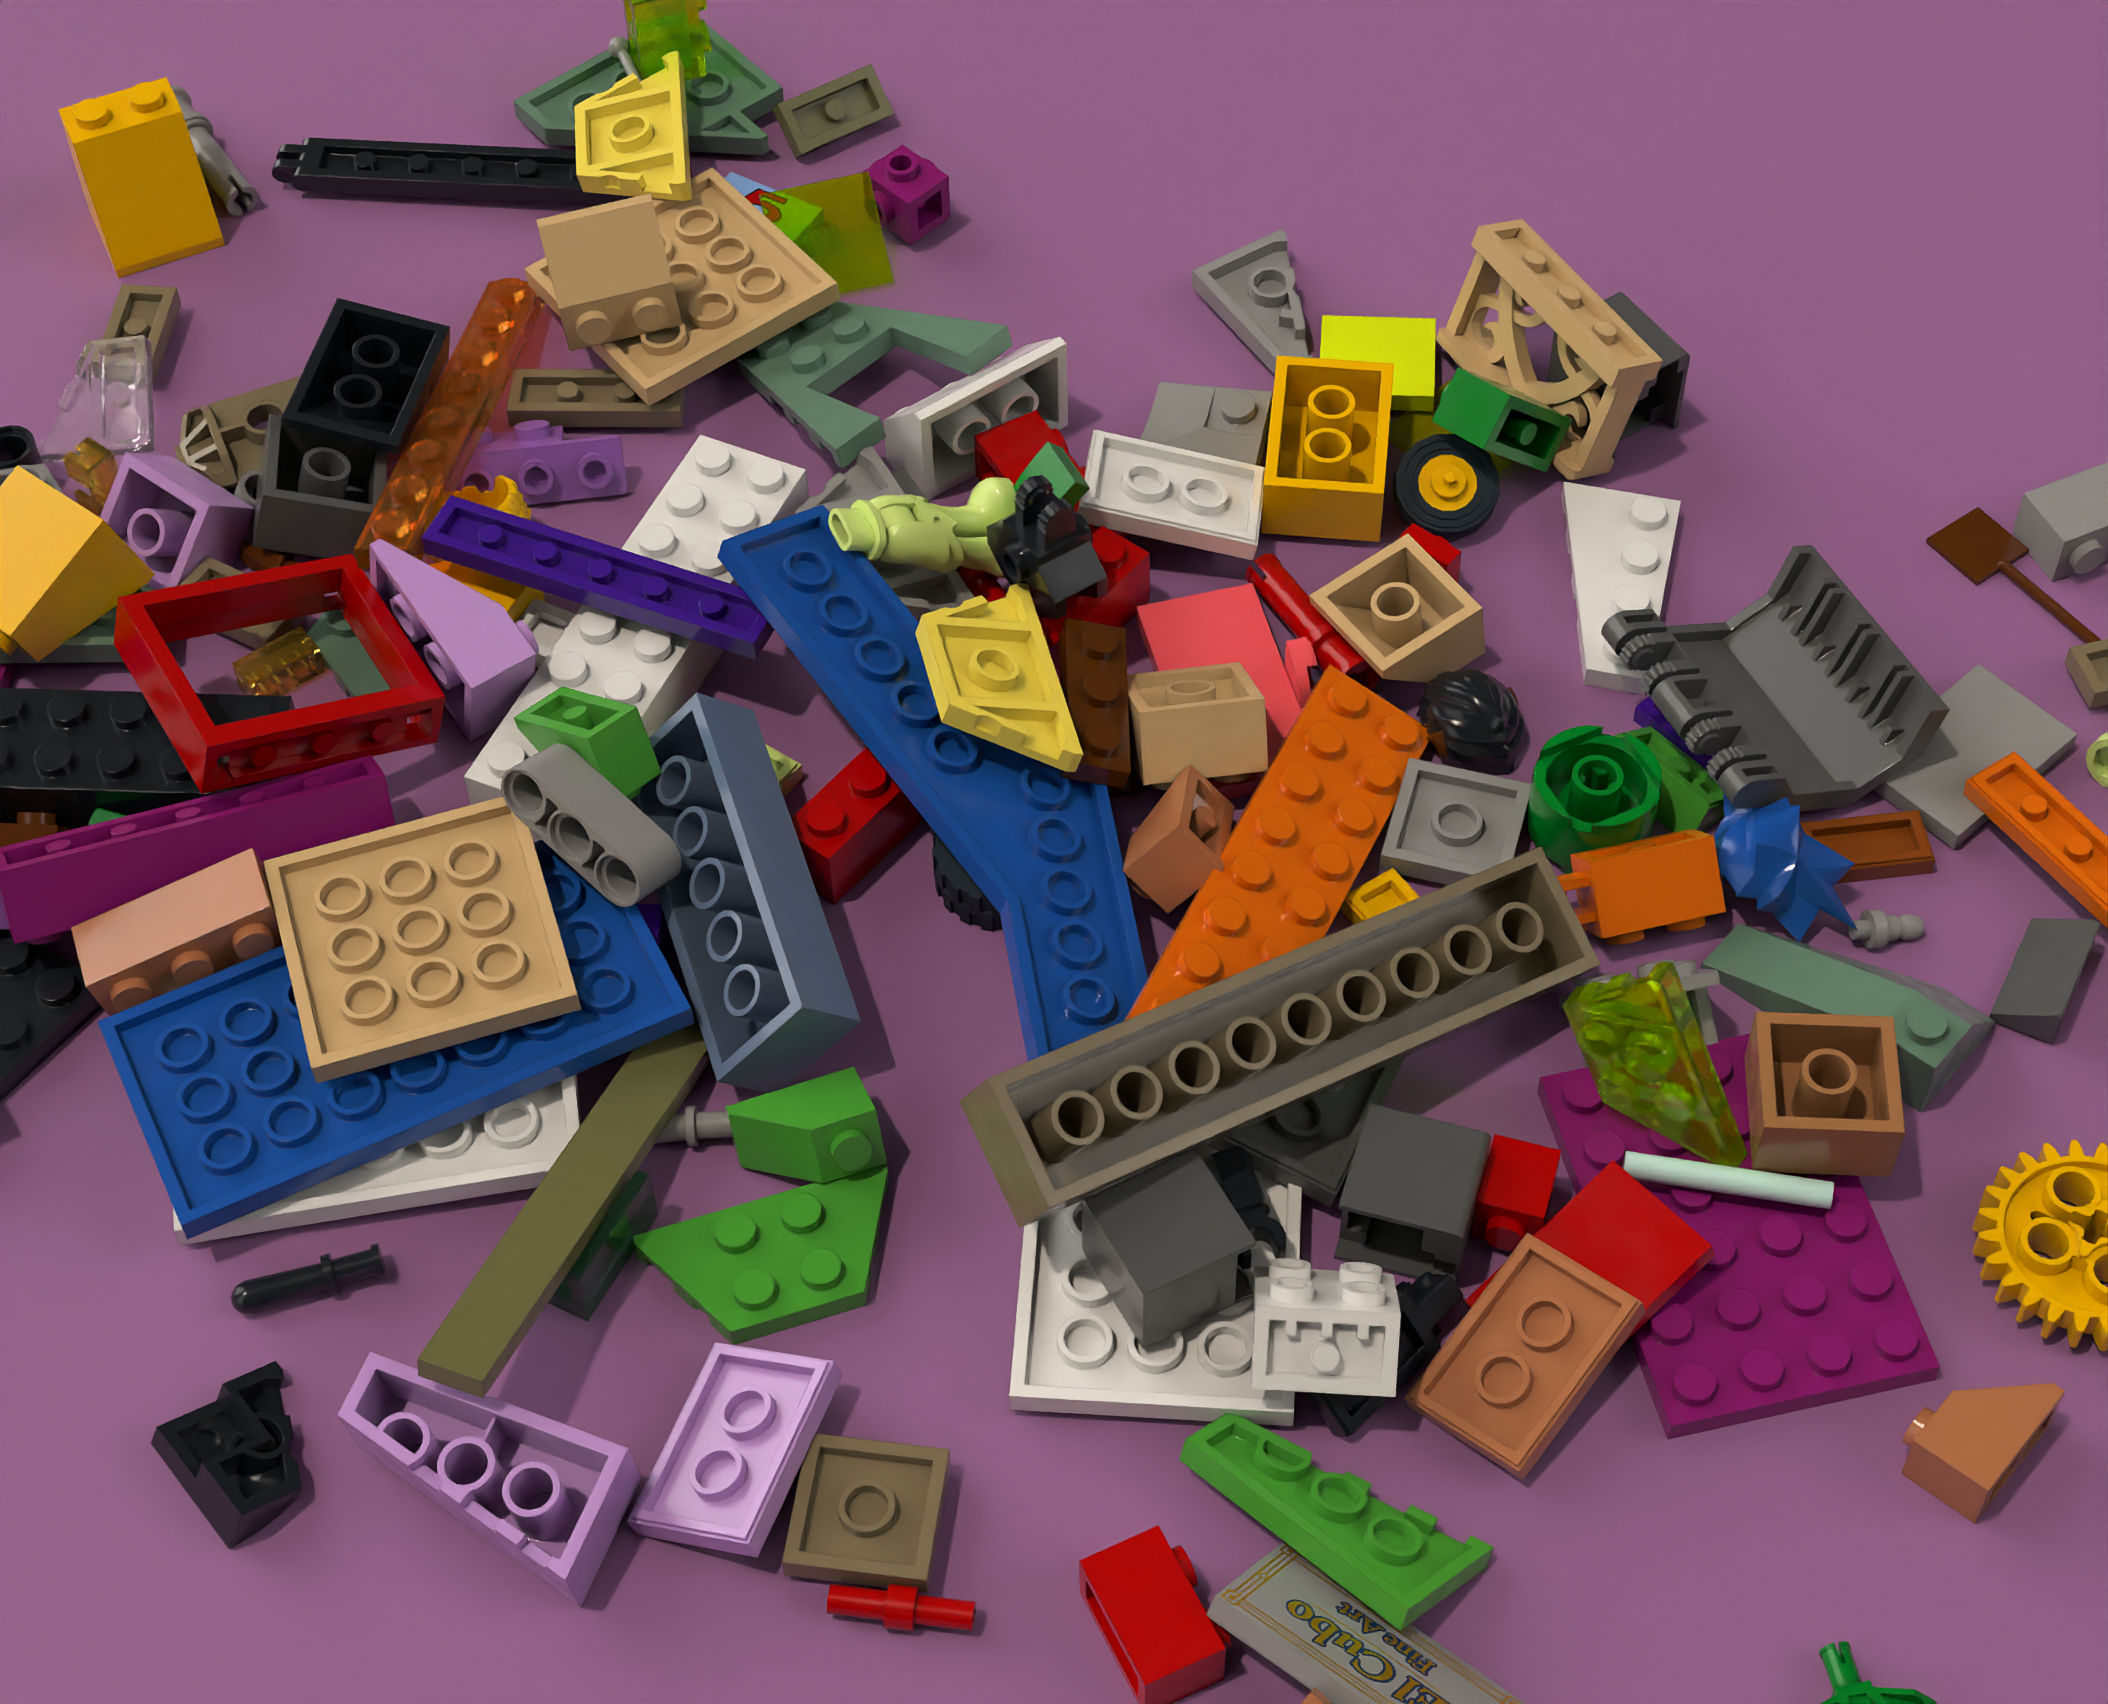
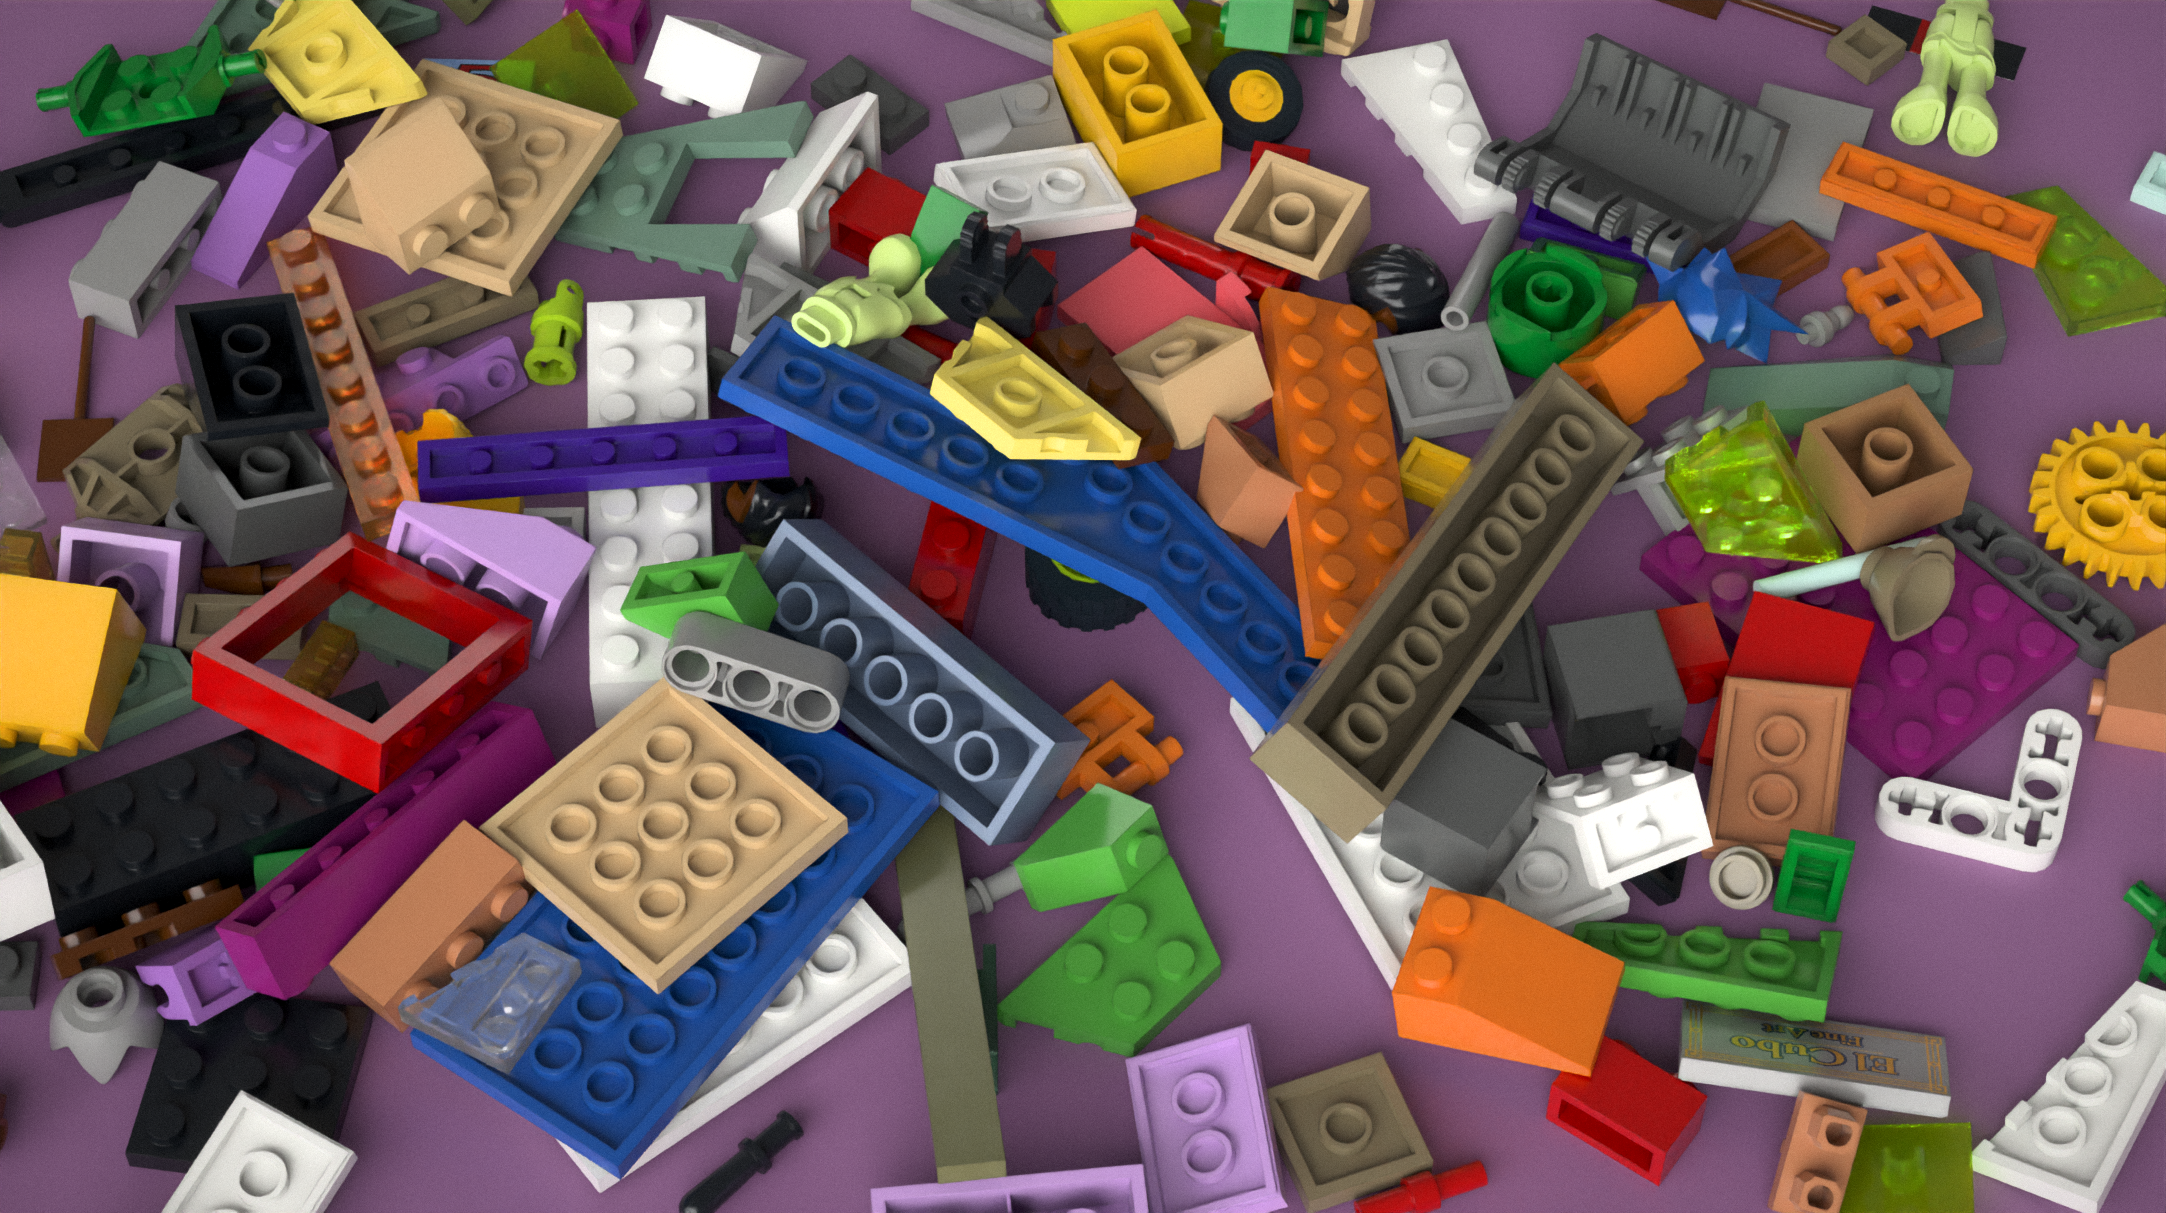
camera: 30 degrees left, 0 degrees up
(177, 1025) = (497, 1002): none -> clear wing
(221, 383) = (68, 438): none -> reddish brown piece
(390, 247) = (145, 250): none -> light grey brick
(478, 111) = (151, 89): none -> green plate
(501, 242) = (267, 198): none -> medium lavender slope
(669, 448) = (556, 330): none -> lime piece
(748, 683) = (761, 505): none -> black hair
(900, 1022) = (1117, 728): none -> orange plate
(979, 271) = (719, 67): none -> white slope
(1092, 1438) = (1503, 985): none -> orange slope
(1097, 359) = (899, 114): none -> dark grey plate
(1424, 1444) = (1741, 877): none -> plate
(1487, 1476) = (1813, 875): none -> green slope
(1525, 751) = (1479, 271): none -> light grey piece
(1741, 1511) = (2003, 820): none -> white beam
(1778, 1225) = (1910, 584): none -> dark tan piece
(1944, 1280) = (2042, 577): none -> dark grey beam
(2011, 937) = (1929, 291): none -> orange plate

